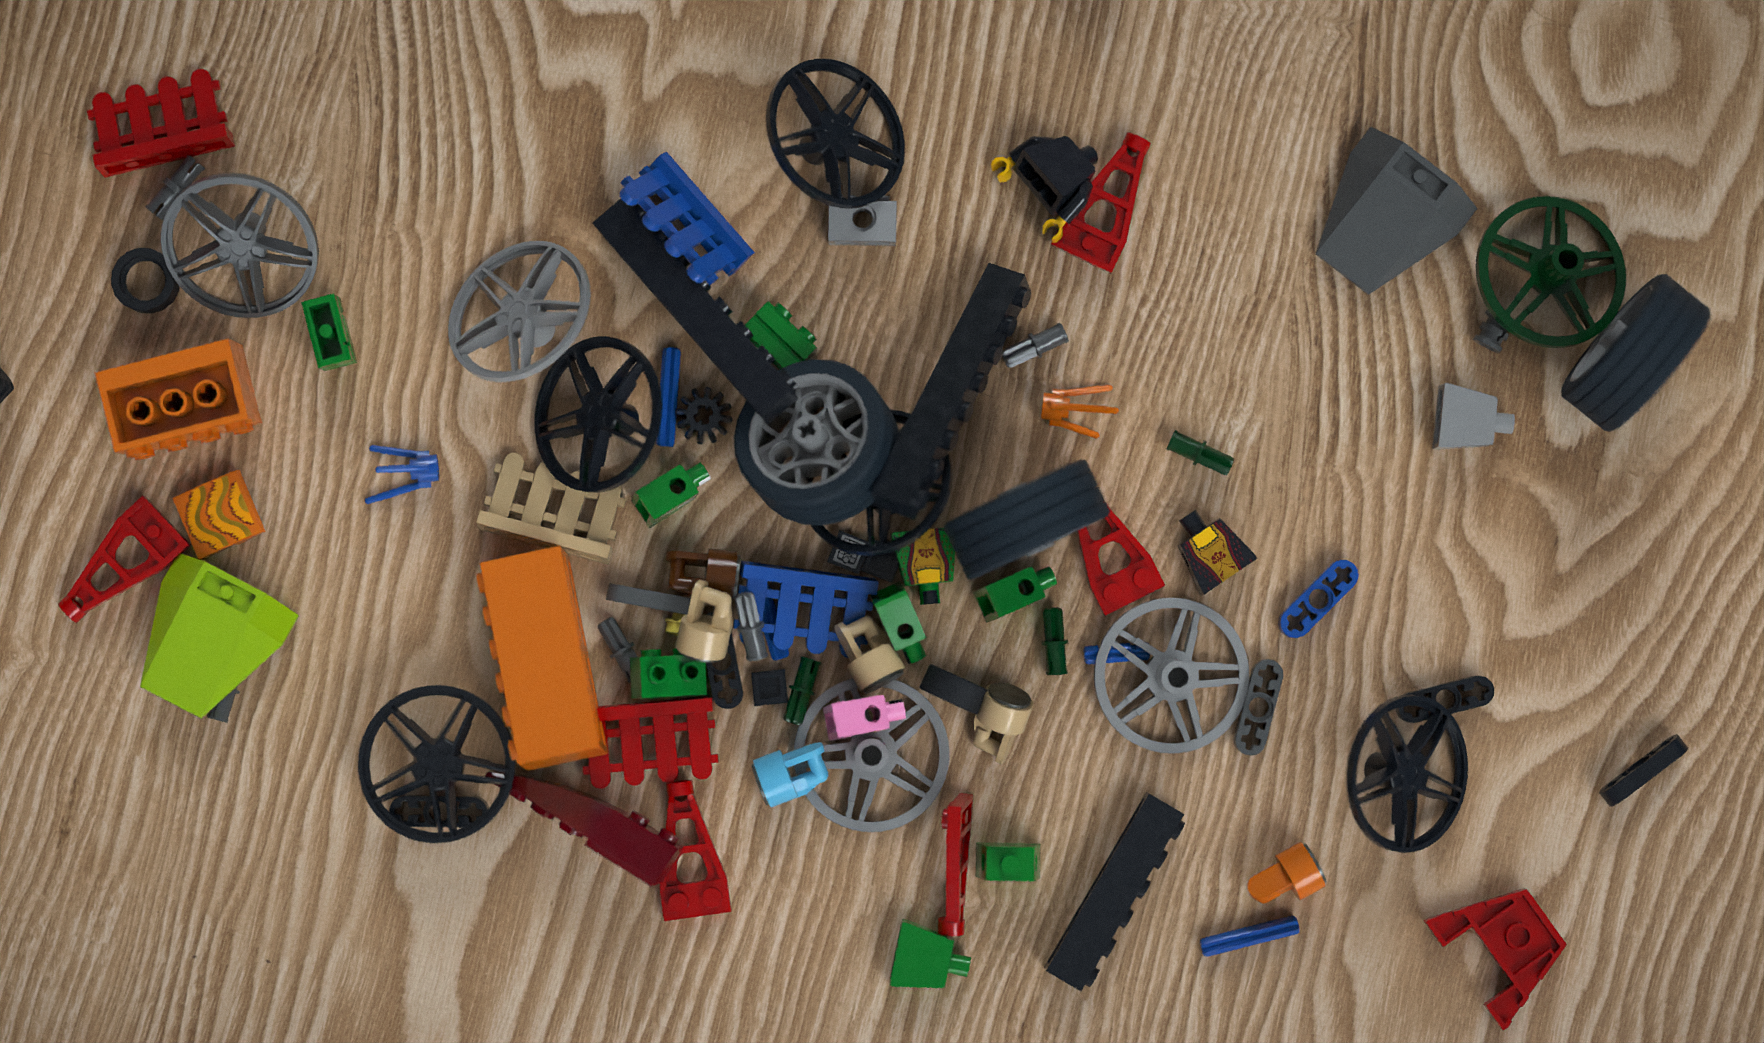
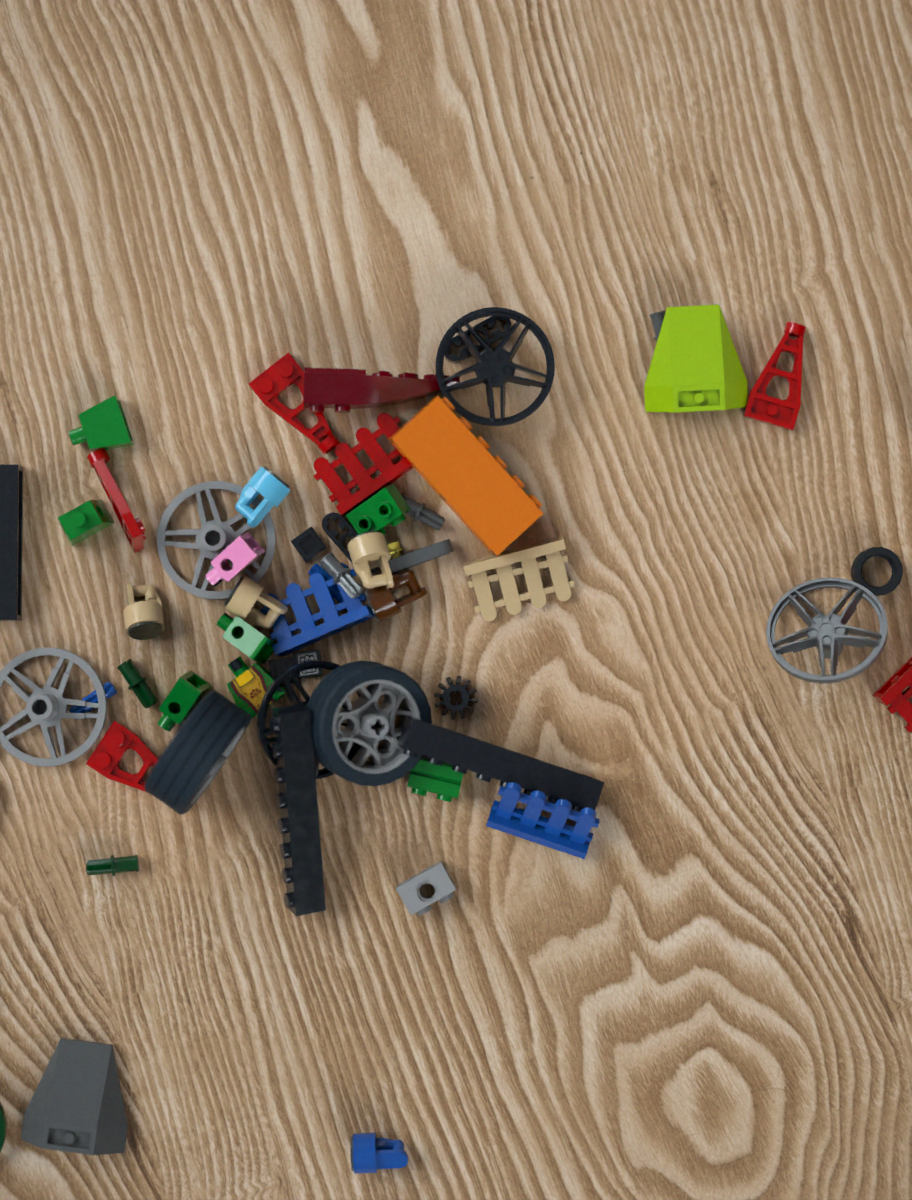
camera: 150 degrees right, 0 degrees up
(161, 386) = (823, 509): orange brick -> none
(174, 186) = (894, 644): dark grey pin -> none
(218, 514) = (736, 446): slope -> none
(329, 332) = (735, 607): green brick -> none
(423, 468) = (620, 554): blue plant -> none
(520, 312) = (615, 694): light grey wheel -> none
(601, 414) = (522, 657): black wheel -> none
(658, 502) = (452, 624): green torso -> none
(669, 390) = (487, 696): blue axle -> none
(801, 690) = (285, 554): dark green axle -> none
(832, 134) = (478, 934): black wheel -> none
(953, 689) = (185, 613): black tyre -> none
(1034, 345) = (263, 873): dark grey axle -> none
(1054, 173) = (315, 996): black torso -> none
(1057, 407) = (225, 841): orange plant -> none
(1090, 243) = (269, 963): red plate -> none
(1212, 552) = (66, 804): torso -> none

